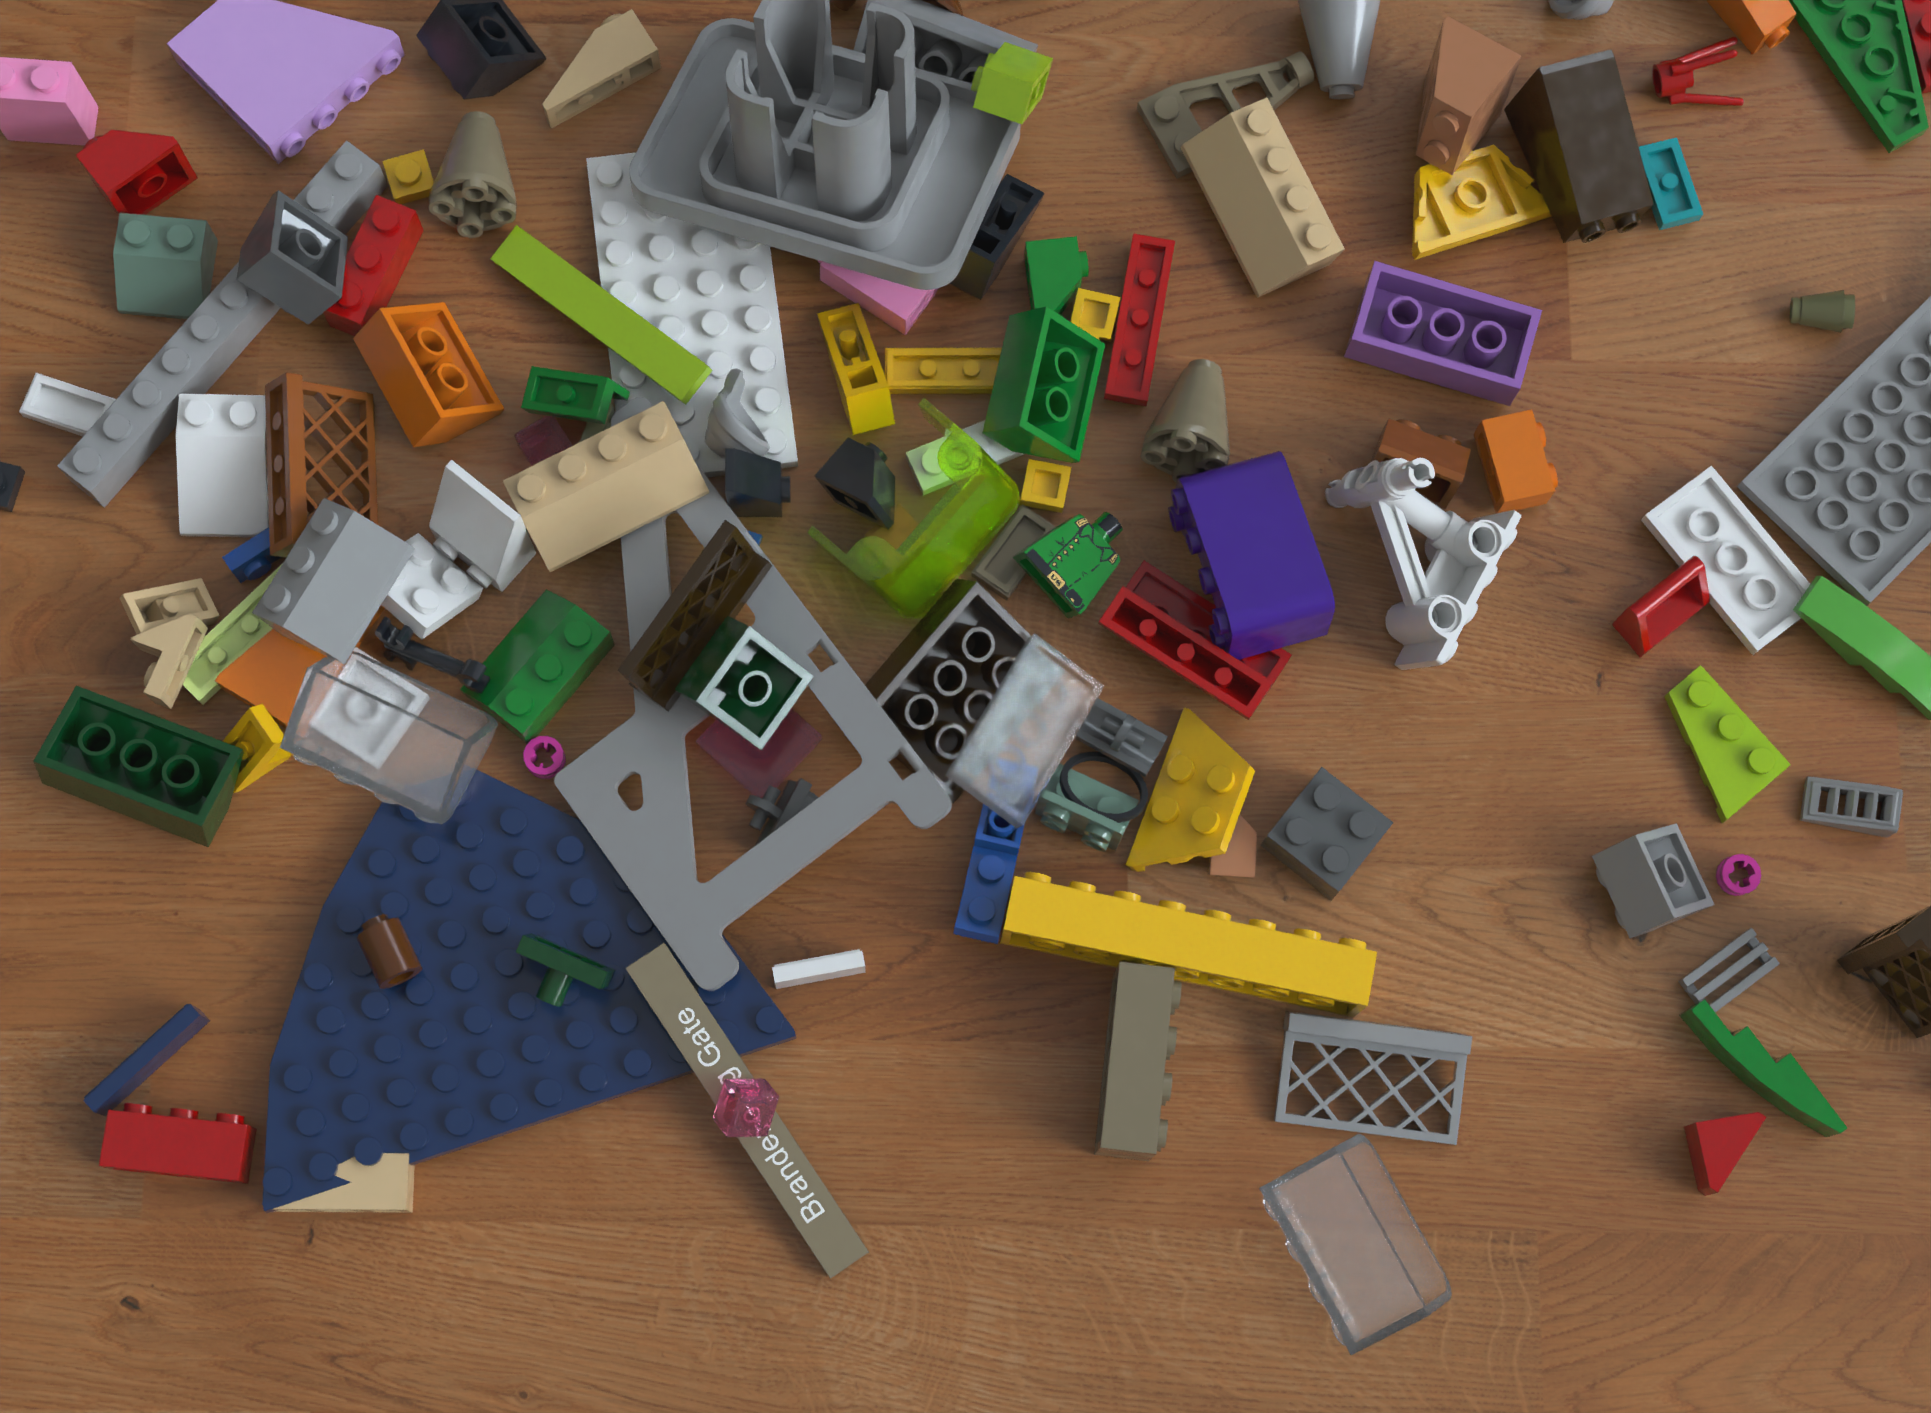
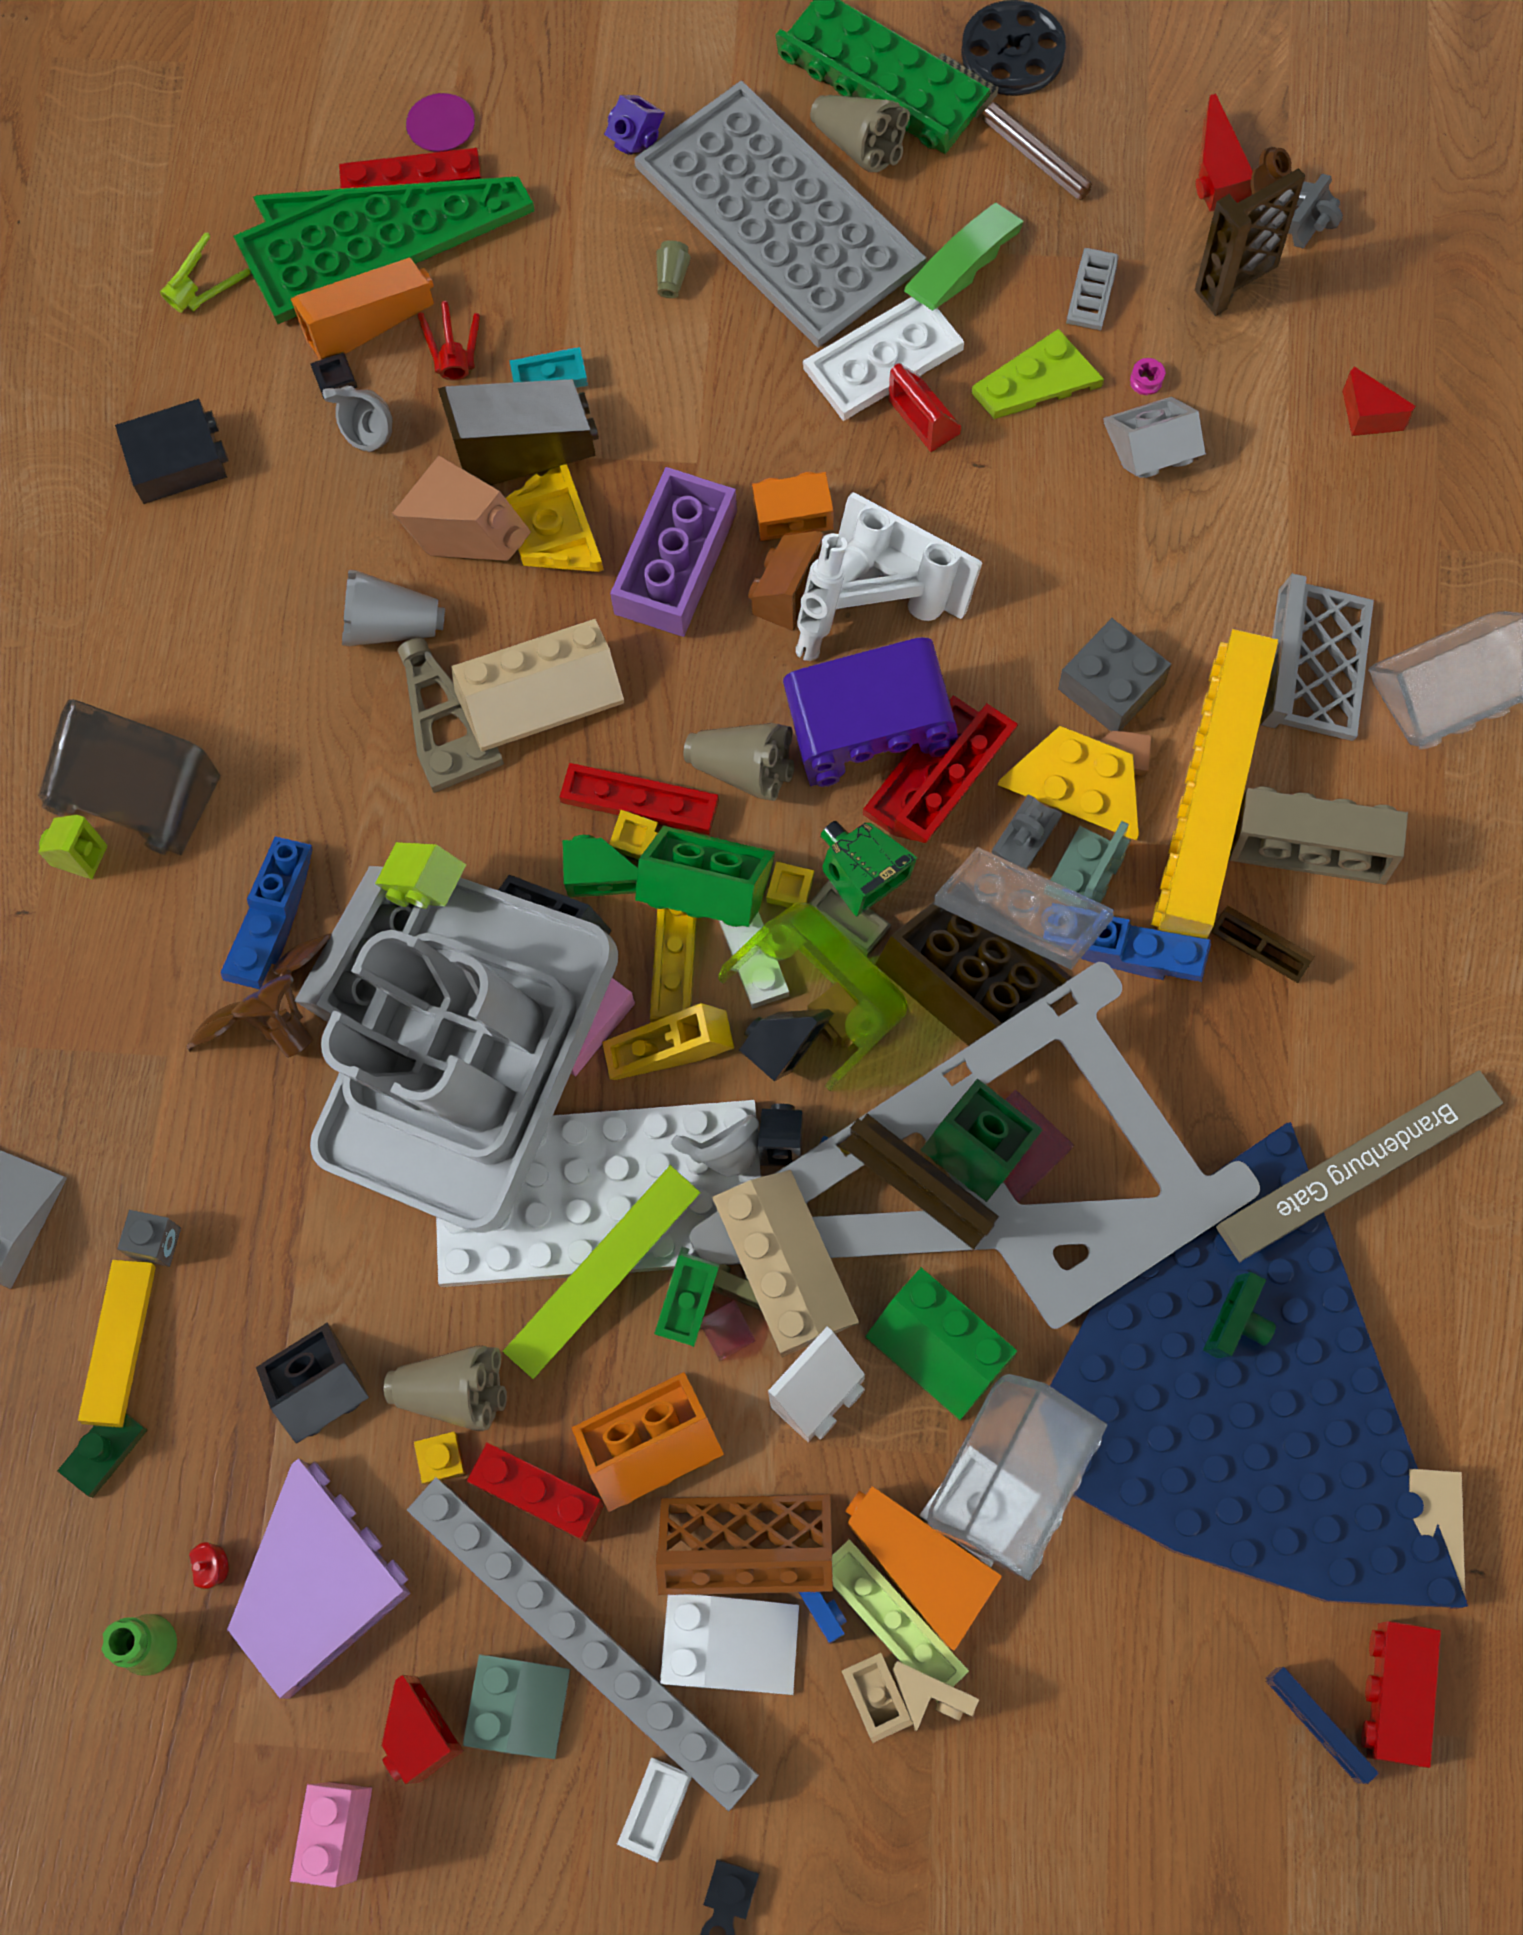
camera: 75 degrees left, 5 degrees down
(140, 765) = (1034, 1727): dark green slope -> none
(260, 742) = (1018, 1620): yellow slope -> none
(294, 259) = (534, 1558): dark grey slope -> none
(333, 581) = (871, 1519): light grey slope -> none
(388, 951) = (1226, 1479): reddish brown brick -> none
(400, 645) = (925, 1463): black bar -> none
(429, 589) = (863, 1450): white plate -> none
(530, 757) = (1030, 1328): dark pink bush -> none
(608, 62) = (338, 1253): tan slope -> none
(745, 1107) = (1366, 1159): clear pink slope -> none
(792, 800) = (1088, 1125): dark grey hips -> none
(818, 968) = (1230, 1100): white tile -> none
(1003, 1004) = (1266, 937): none -> dark brown piece
(1097, 756) = (1091, 867): black piece -> none
(1758, 950) = (1234, 388): light grey tile -> none
(1777, 1080) = (1313, 366): green slope -> none

